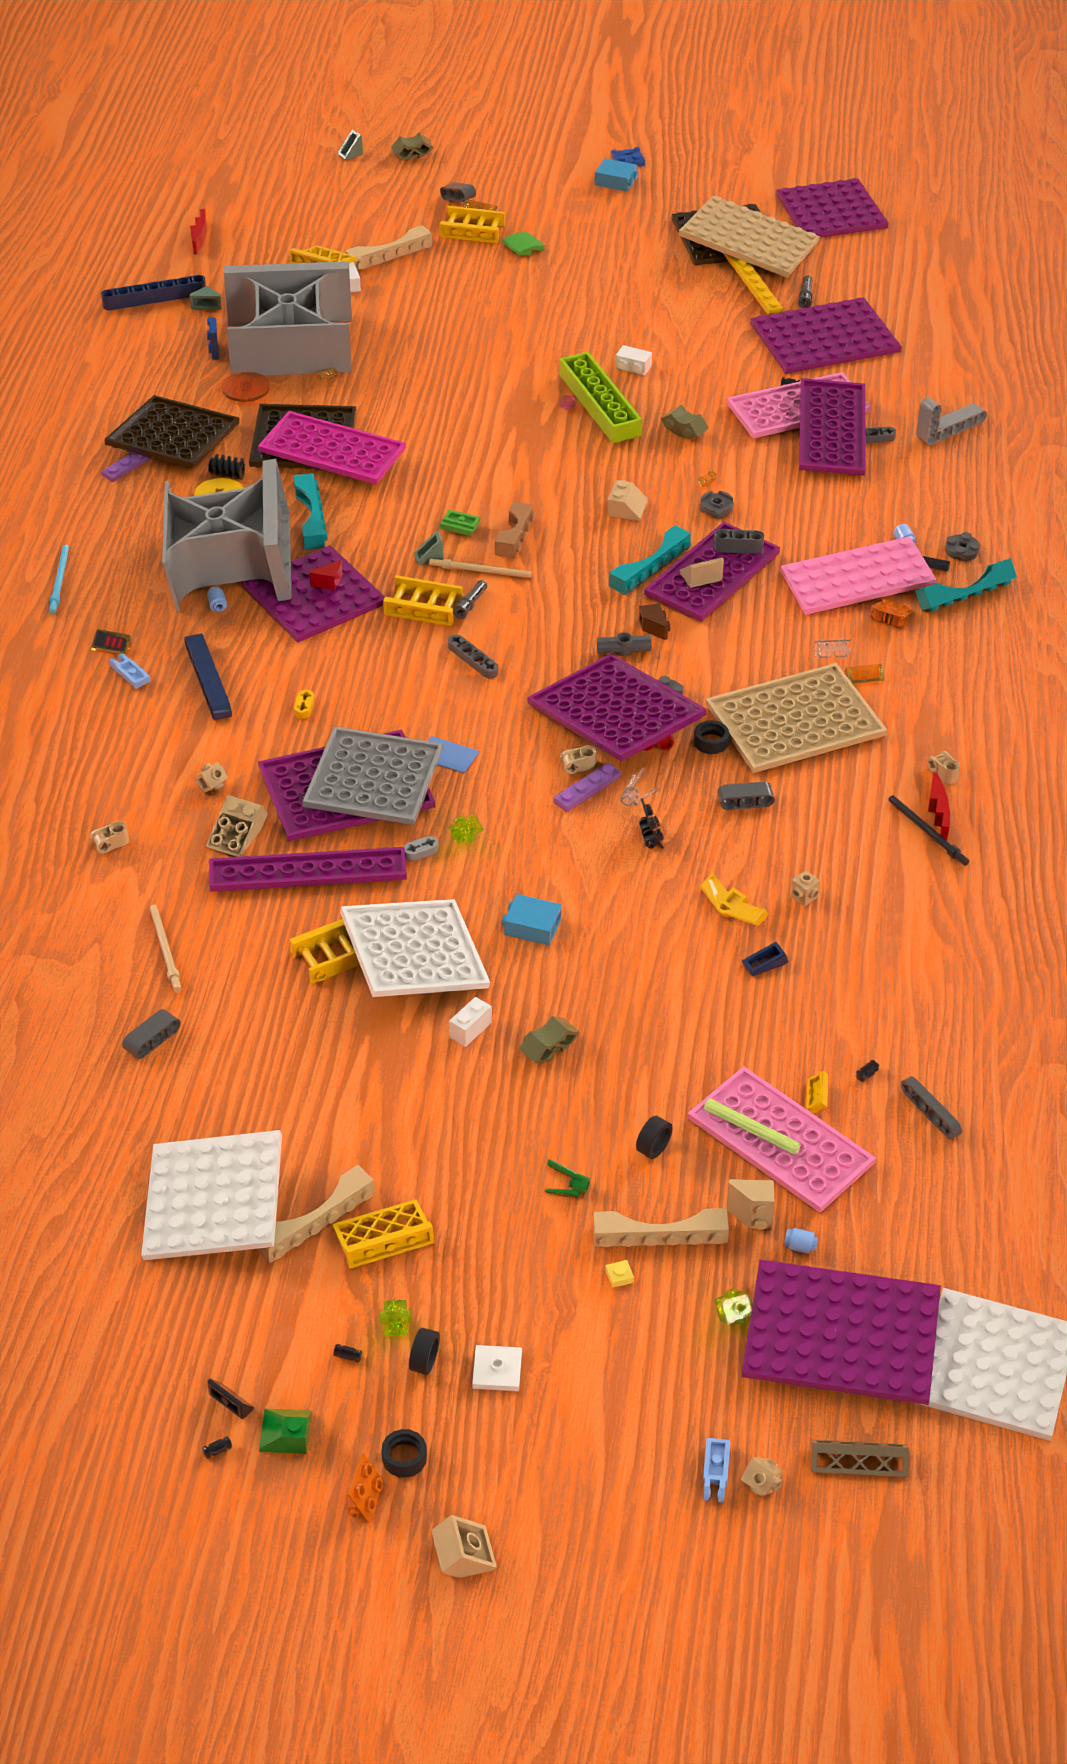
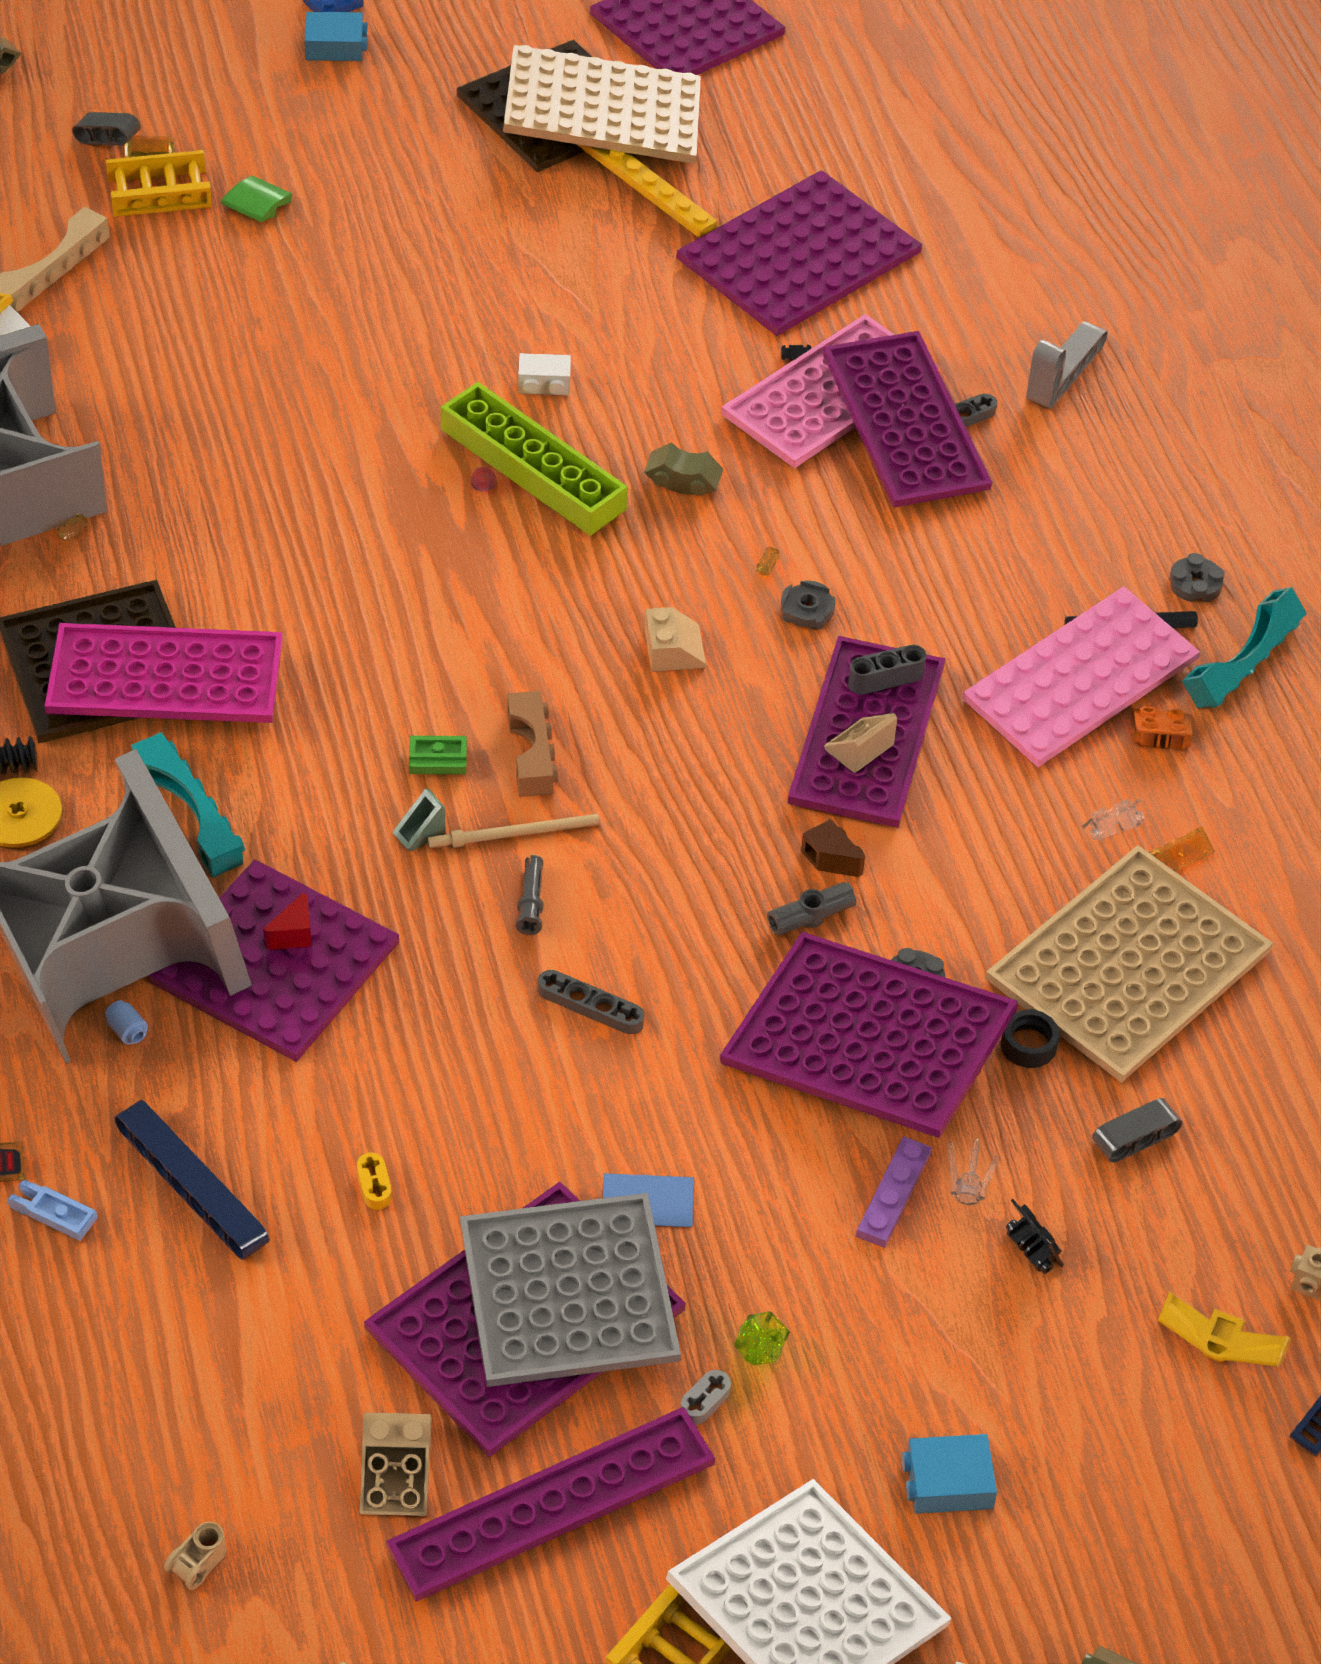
camera: 25 degrees left, 5 degrees up
(211, 777) = (305, 1379): tan brick -> none
(421, 611) = (462, 944): yellow fence -> none
(580, 759) = (854, 1148): tan piece -> none
(628, 576) = (749, 778): teal arch -> none
(805, 294) = (734, 185): dark grey pin -> none
(902, 531) = (1106, 581): light blue brick -> none

